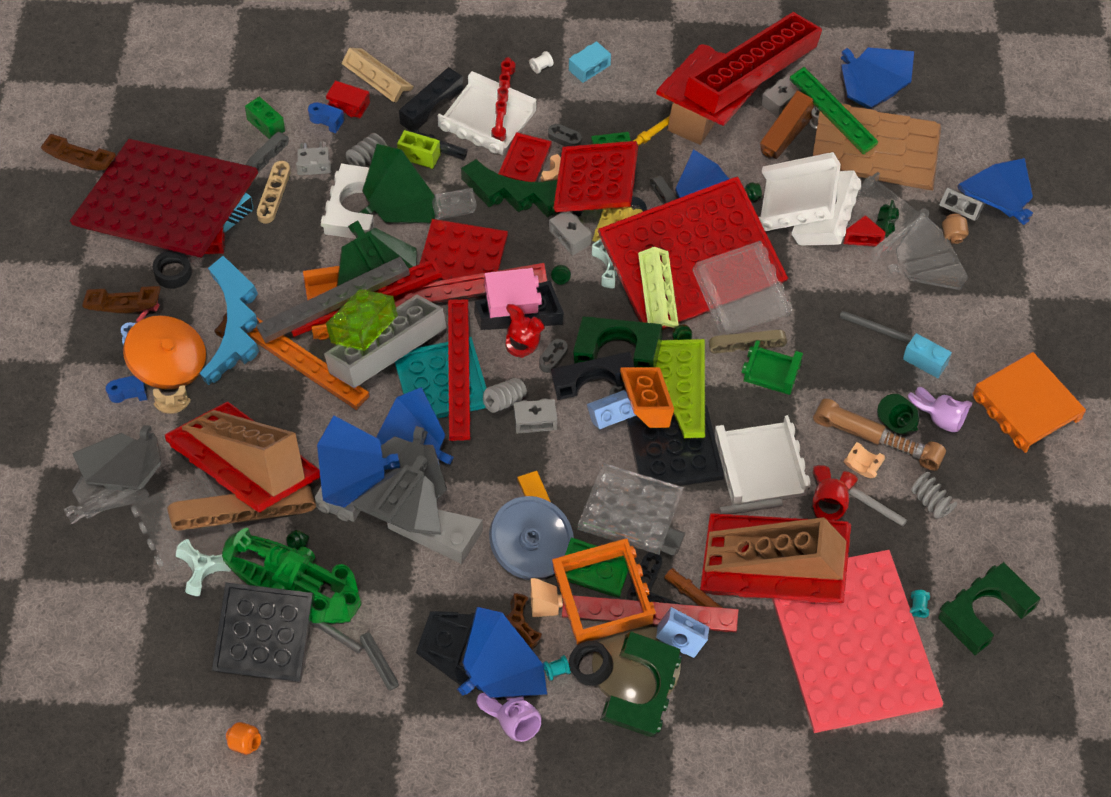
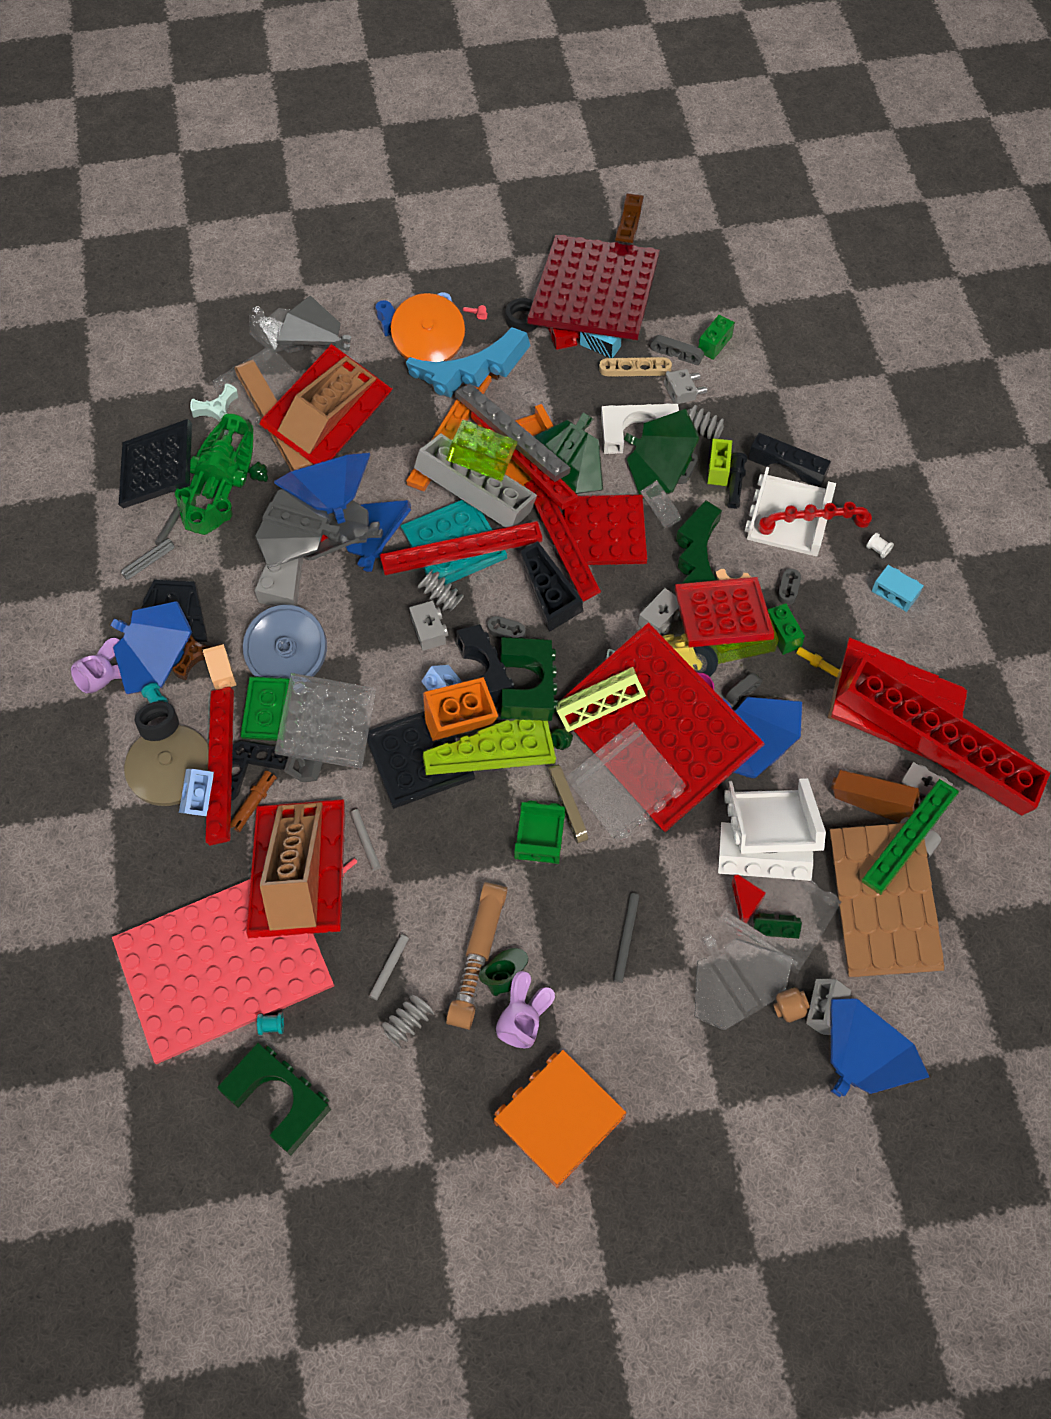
camera: 80 degrees right, 5 degrees up
(121, 302) = (478, 286): reddish brown slope -> none
(172, 403) = (382, 352): tan piece -> none
(243, 738) = (60, 478): orange head -> none
(326, 115) = (737, 389): blue leg -> none
(348, 98) = (765, 394): red brick -> none
(376, 73) = (806, 407): tan fence -> none
(514, 288) = (550, 565): bright pink brick -> none
(523, 330) = (518, 592): red piece -> none
(525, 158) = (744, 556): red plate -> none
(532, 485) = (345, 644): light orange tile -> none
(560, 274) = (606, 616): dark green plate -> none
(593, 556) = (214, 686): orange window -> none
(662, 662) = (157, 777): dark green arch -> none
(753, 191) = (773, 776): dark green plate -> none
(762, 462) = (418, 839): white panel -> none
(832, 491) = (384, 913): red piece -> none
(864, 461) = (439, 942): light nougat piece -> none
(876, 74) = (995, 883): blue panel -> none
(927, 355) = (594, 992): medium azure brick -> none

